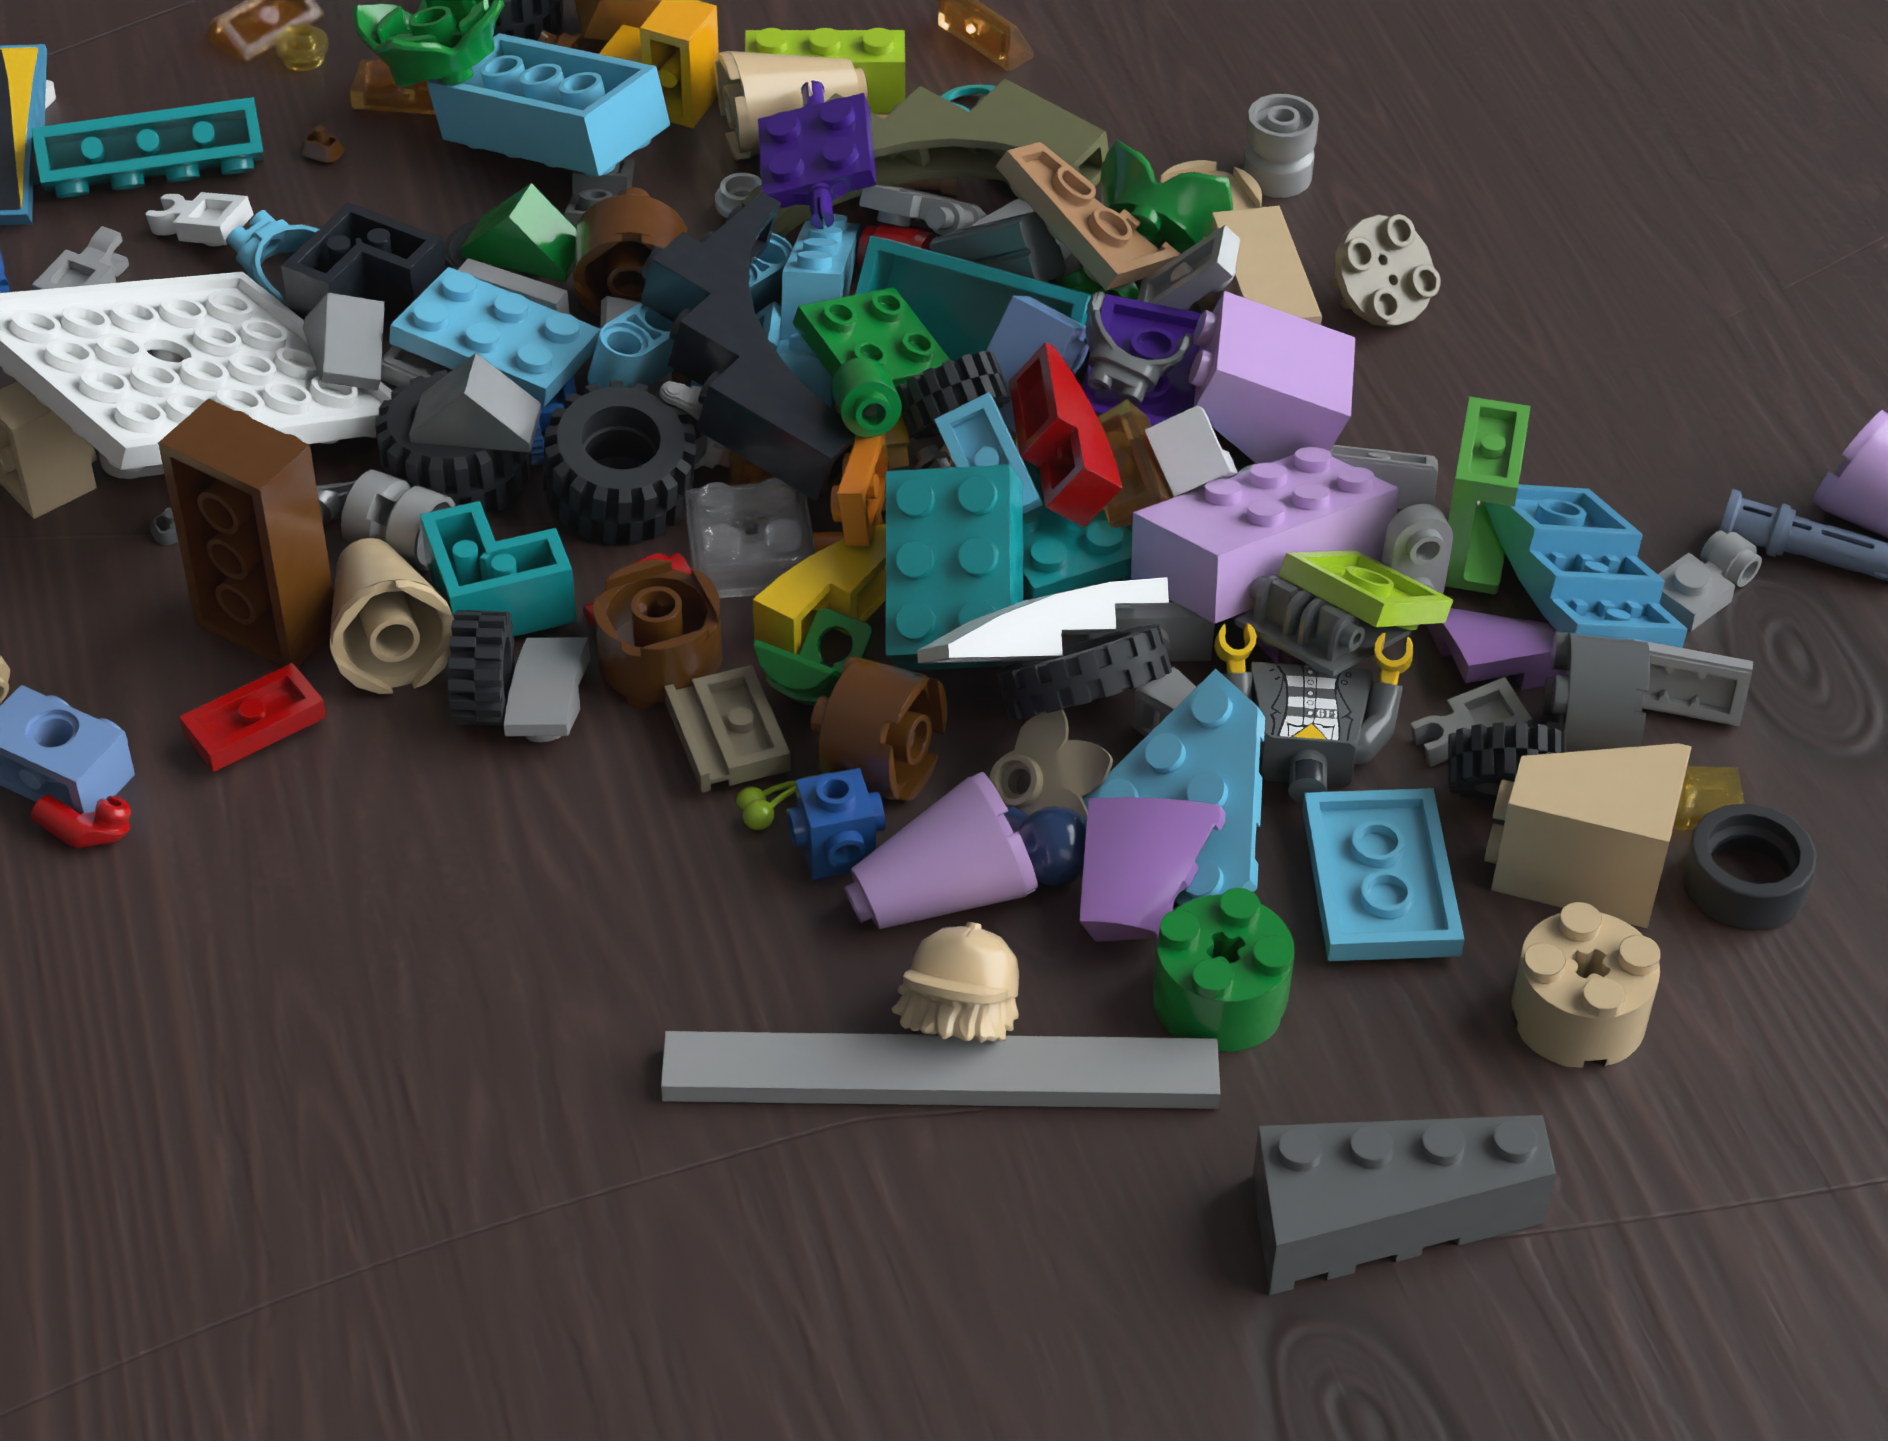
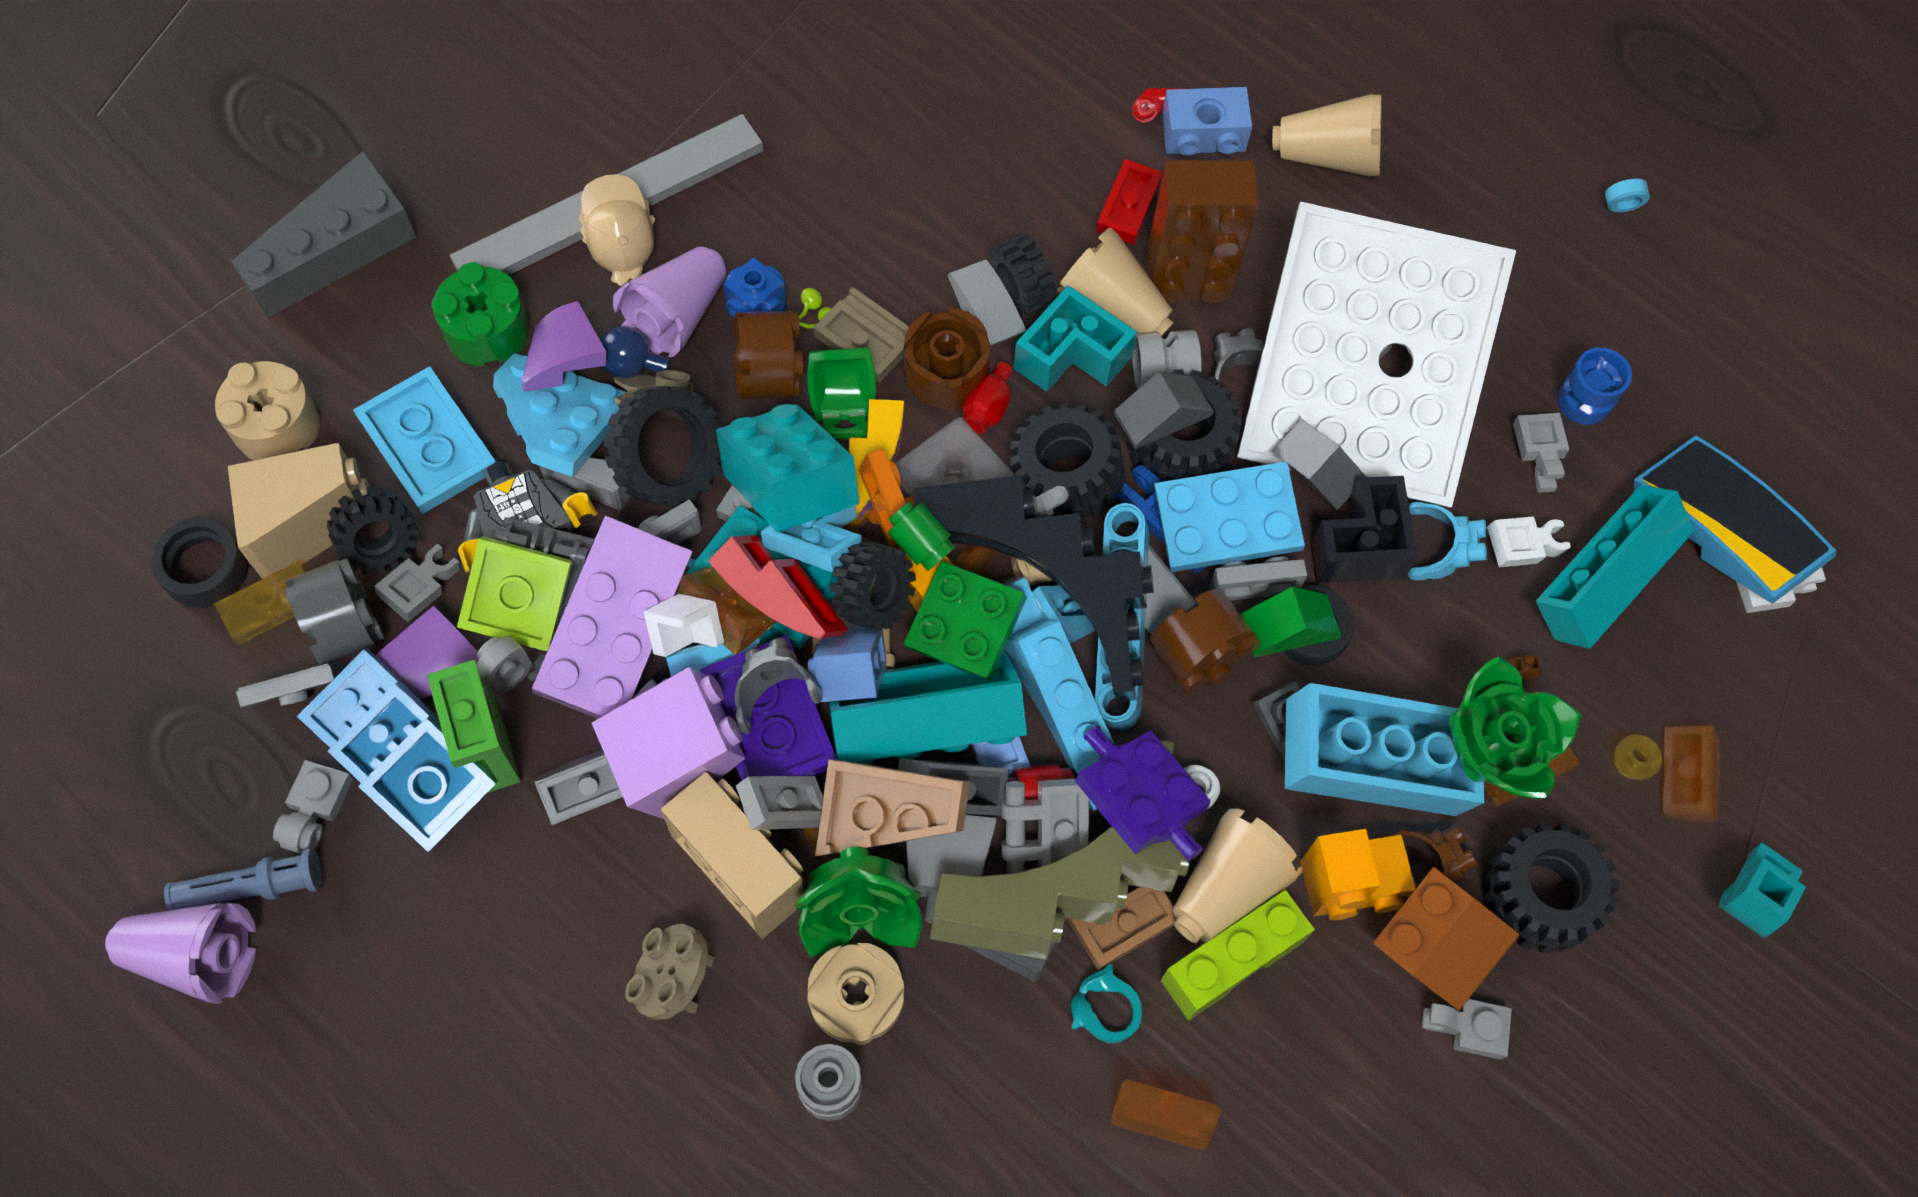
camera: 145 degrees right, 20 degrees up
(1035, 626) = (697, 436): white slope -> none

